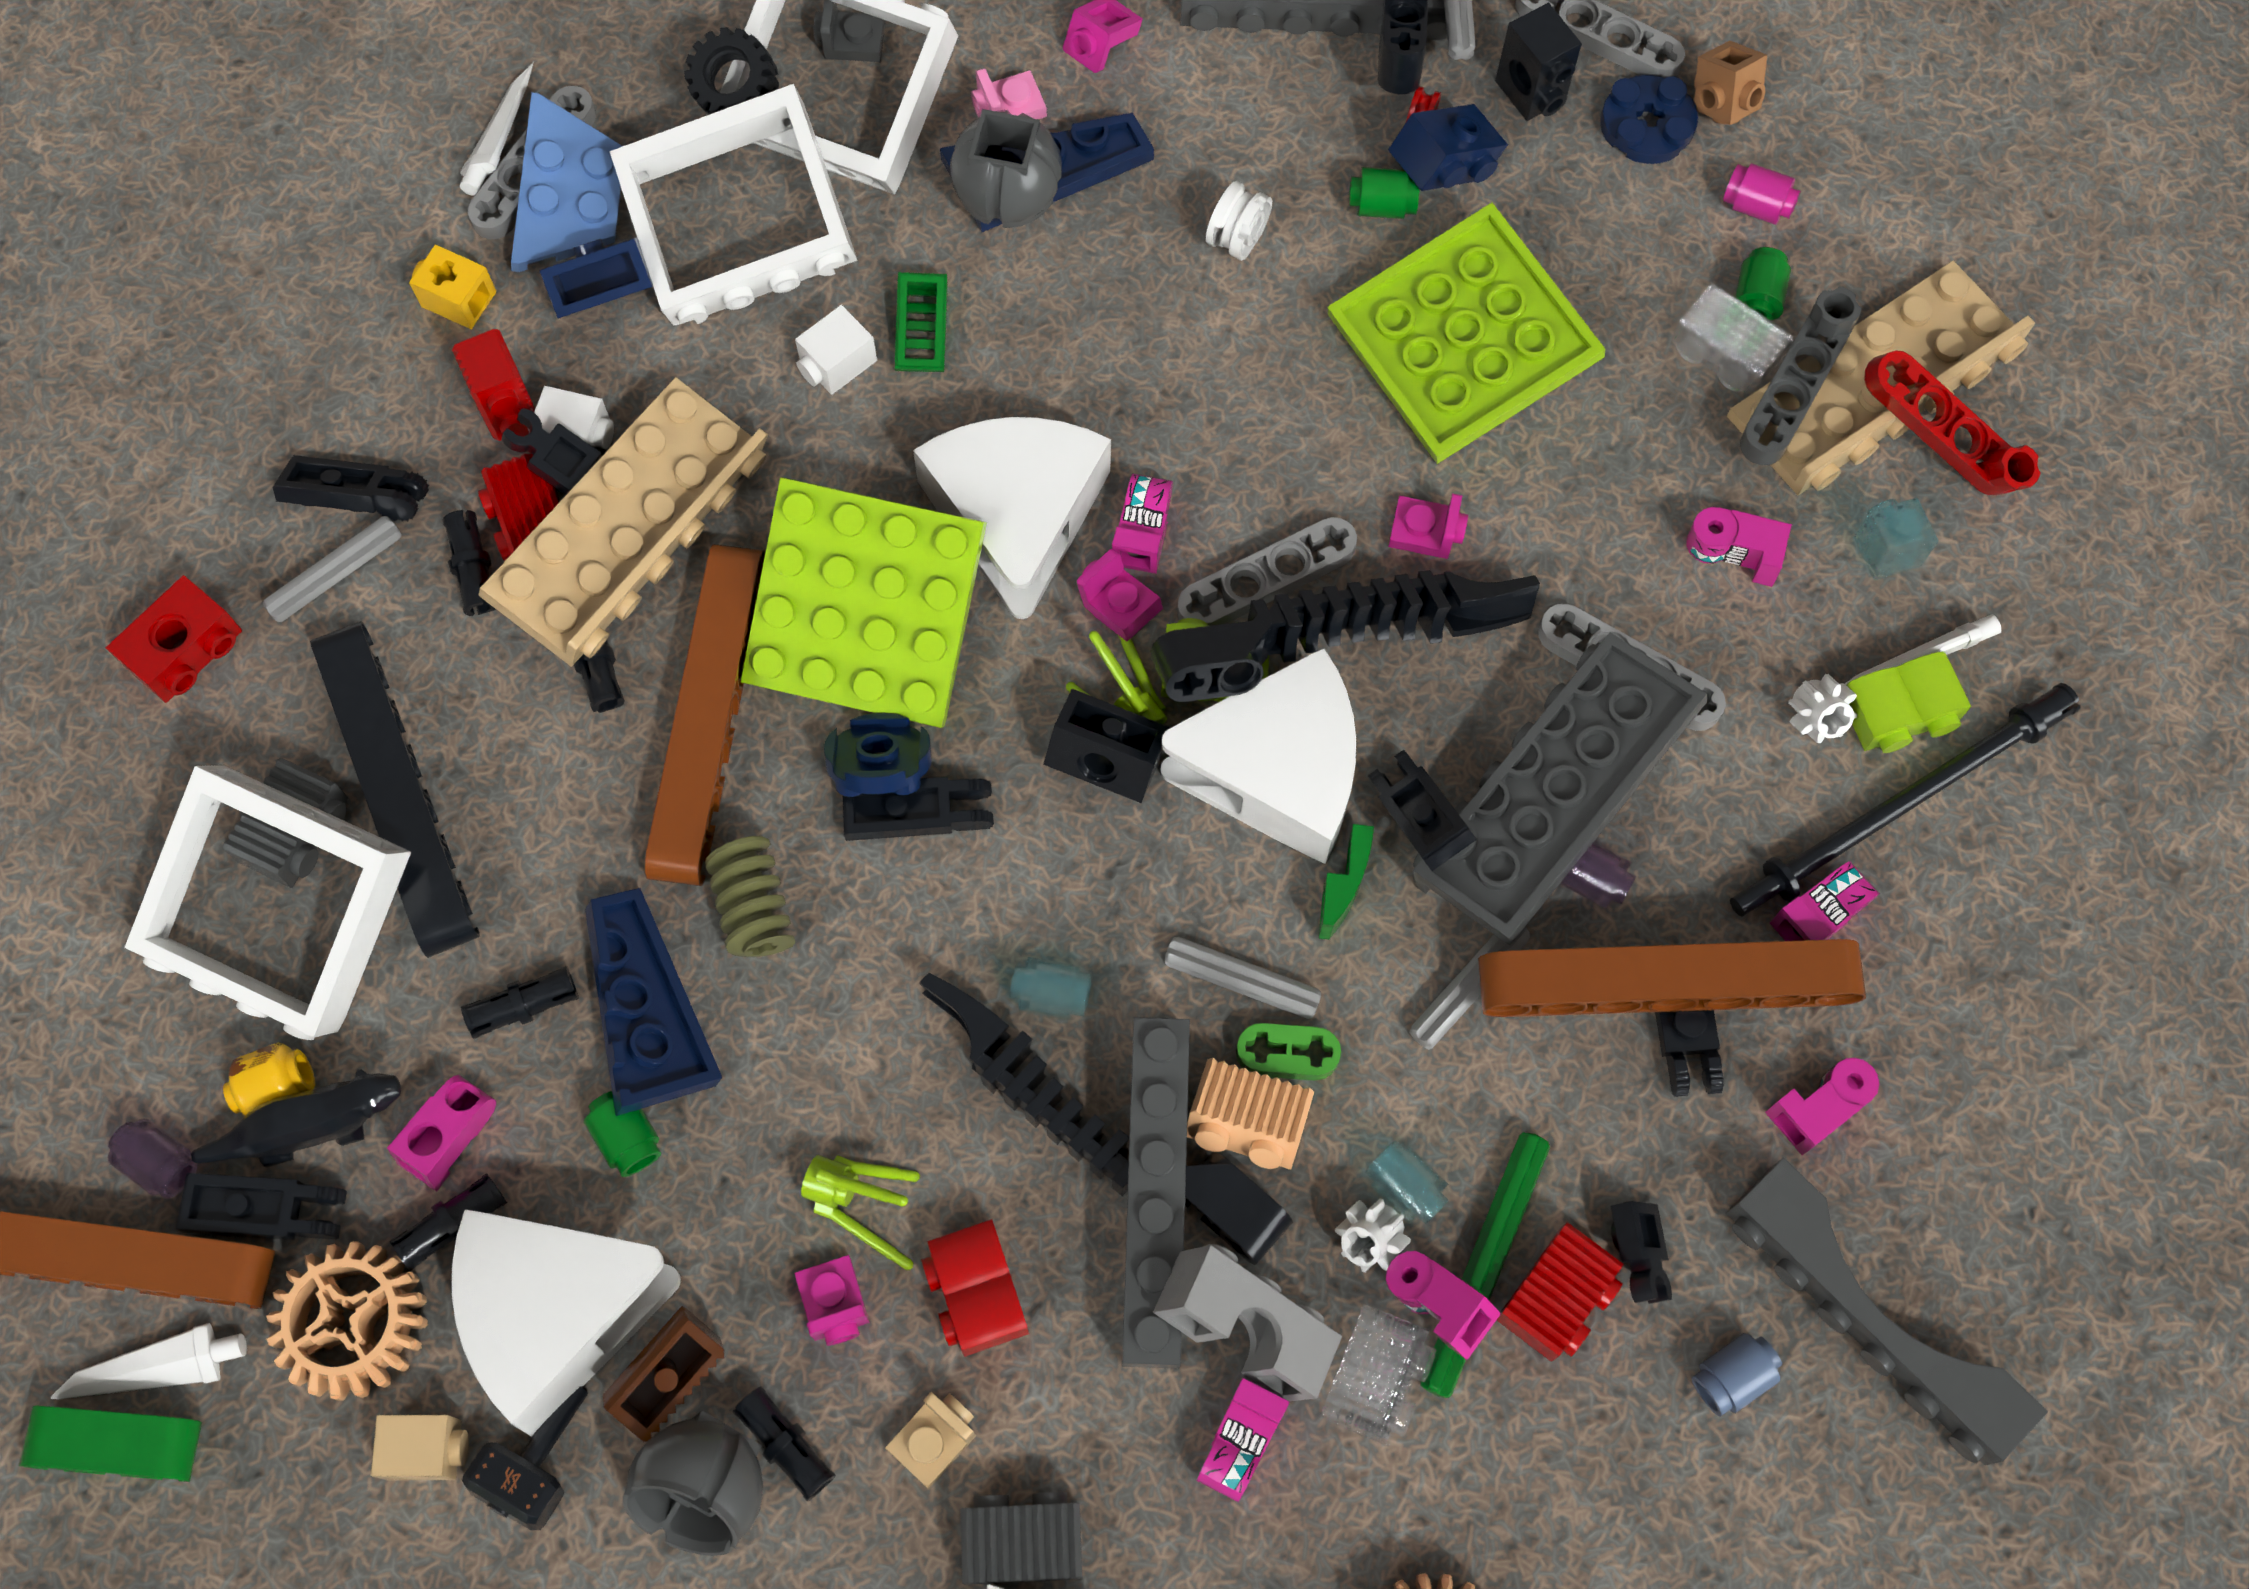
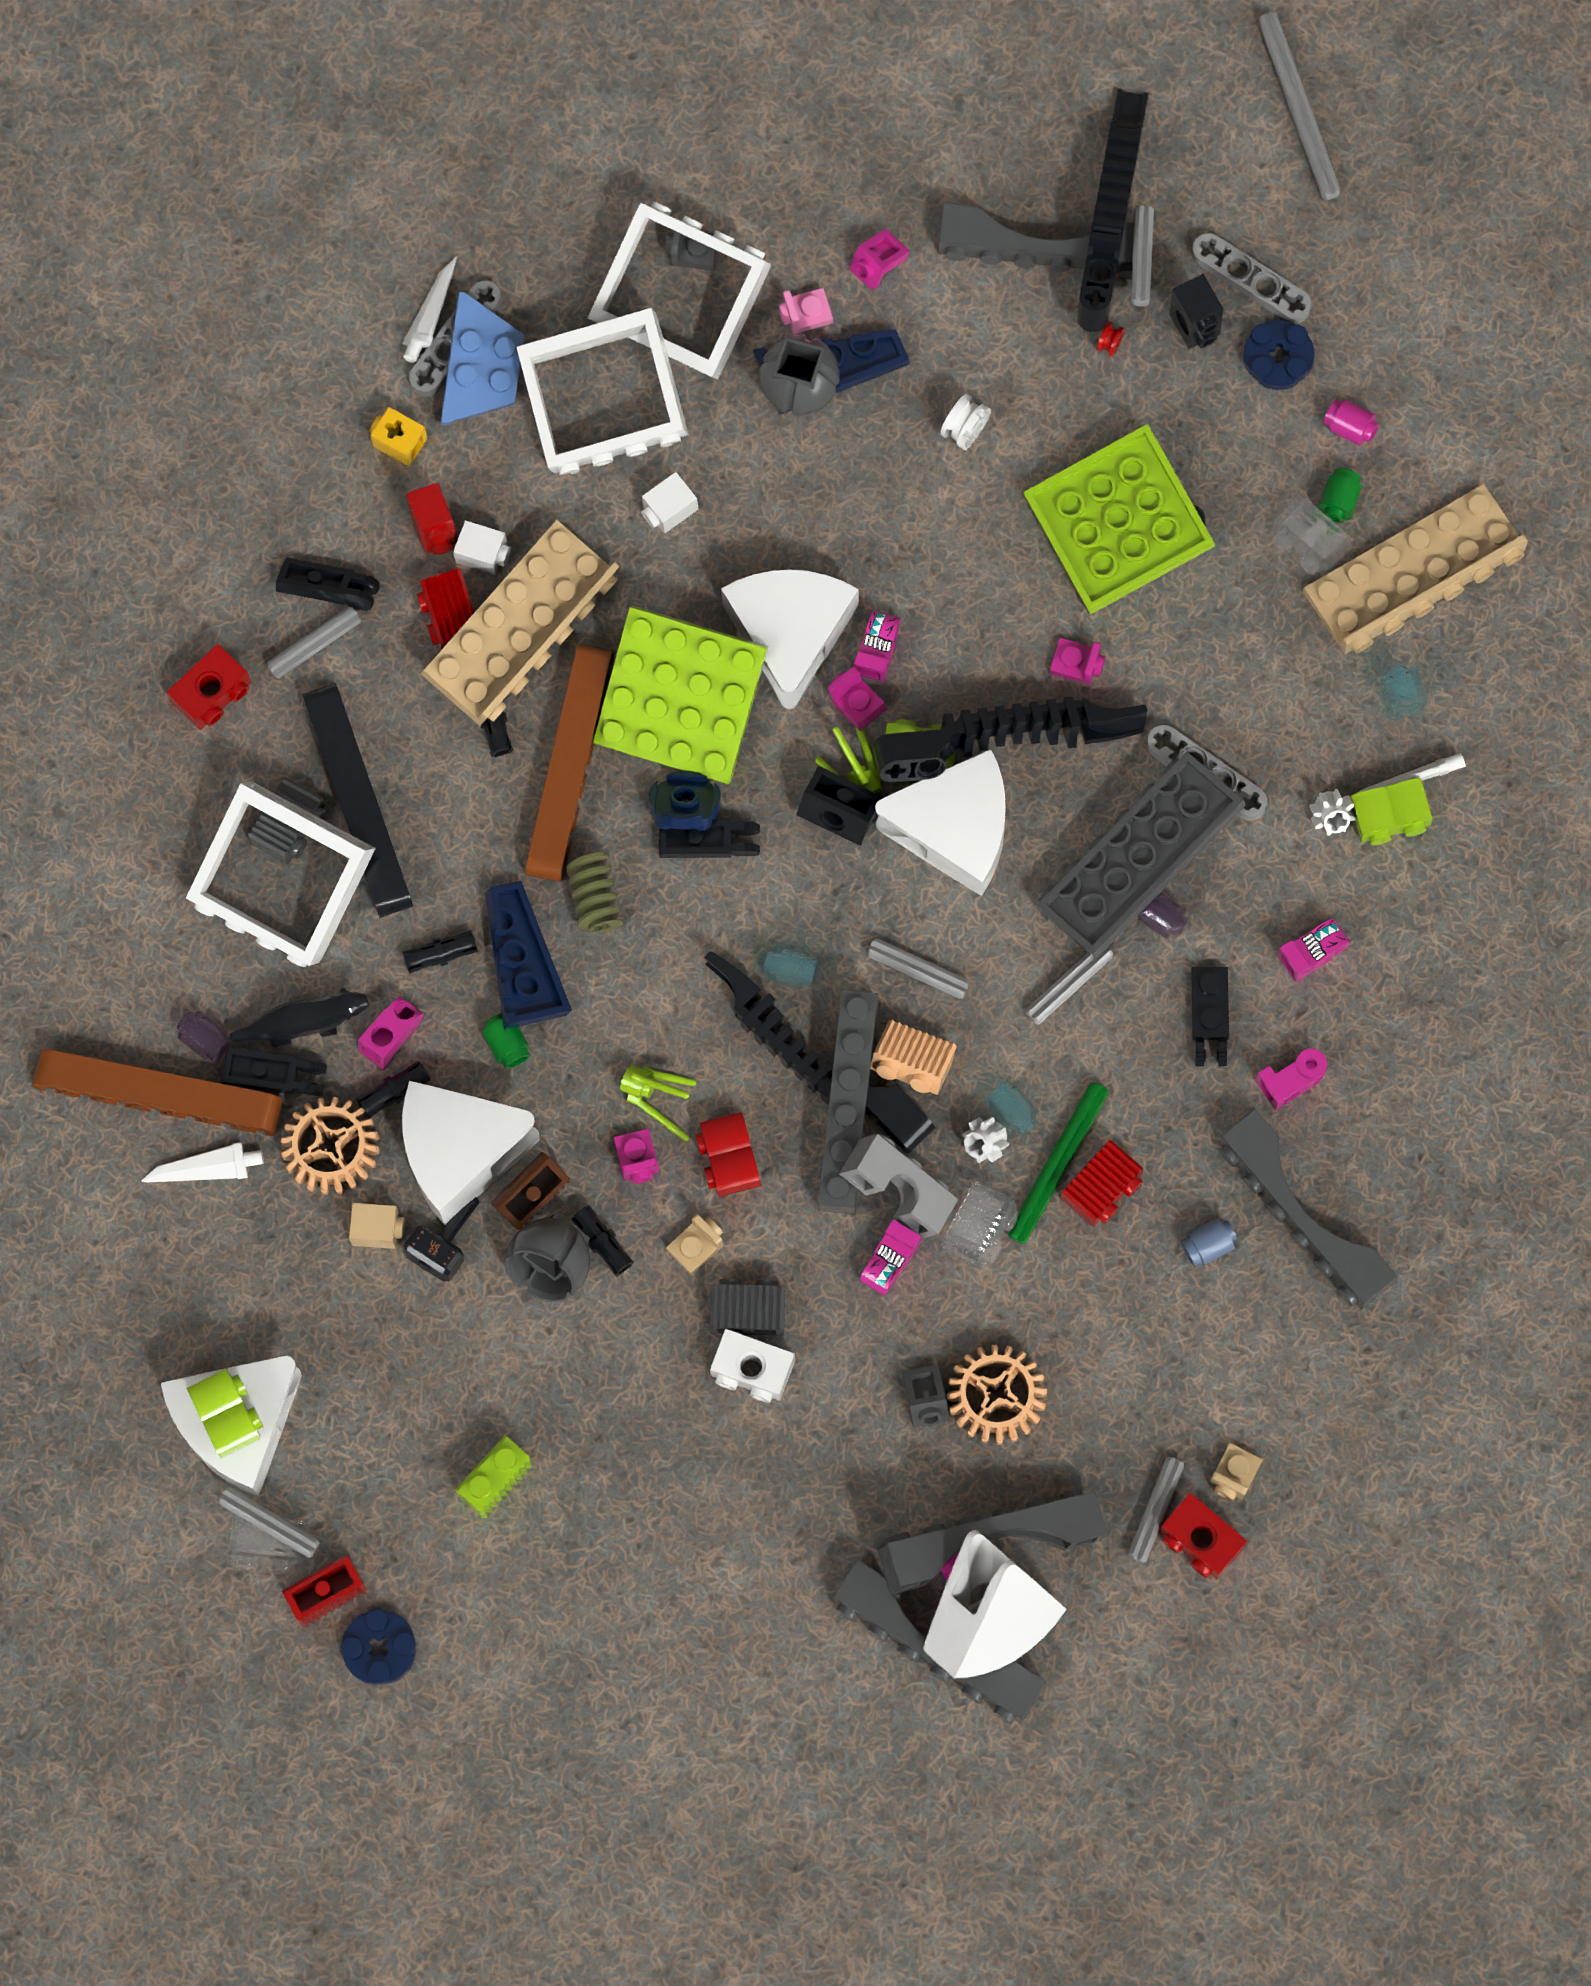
camera: 10 degrees right, 5 degrees up
(110, 1443) = (185, 1208): green beam -> none
(265, 1076) = (277, 989): yellow head -> none
(468, 560) = (408, 644): black pin -> none
(557, 457) = (474, 575): black plate -> none
(596, 276) = (503, 438): dark blue brick -> none
(715, 54) = (593, 274): black tyre -> none
(924, 286) = (731, 455): green slope -> none
(1262, 569) = (959, 685): light grey beam -> none
(1289, 1038) = (944, 1010): bright green beam -> none
(1342, 889) = (990, 915): green slope -> none
(1384, 193) = (1074, 404): green brick -> none
(1423, 813) = (1046, 866): black hinge -> none
(1433, 1290) = (1019, 1176): dark pink leg -> none
(1448, 147) = (1123, 375): dark blue brick -> none
(1641, 1242) = (1159, 1157): black plate -> none
(1671, 978) = (1198, 988): dark orange beam -> none
(1730, 82) = (1337, 335): medium nougat brick -> none
(1740, 540) = (1295, 686): dark pink leg -> none
(1831, 317) = (1348, 572): dark grey beam -> none
(2003, 467) = (1452, 608): red beam -> none
(2025, 723) = (1472, 832): black bar -> none

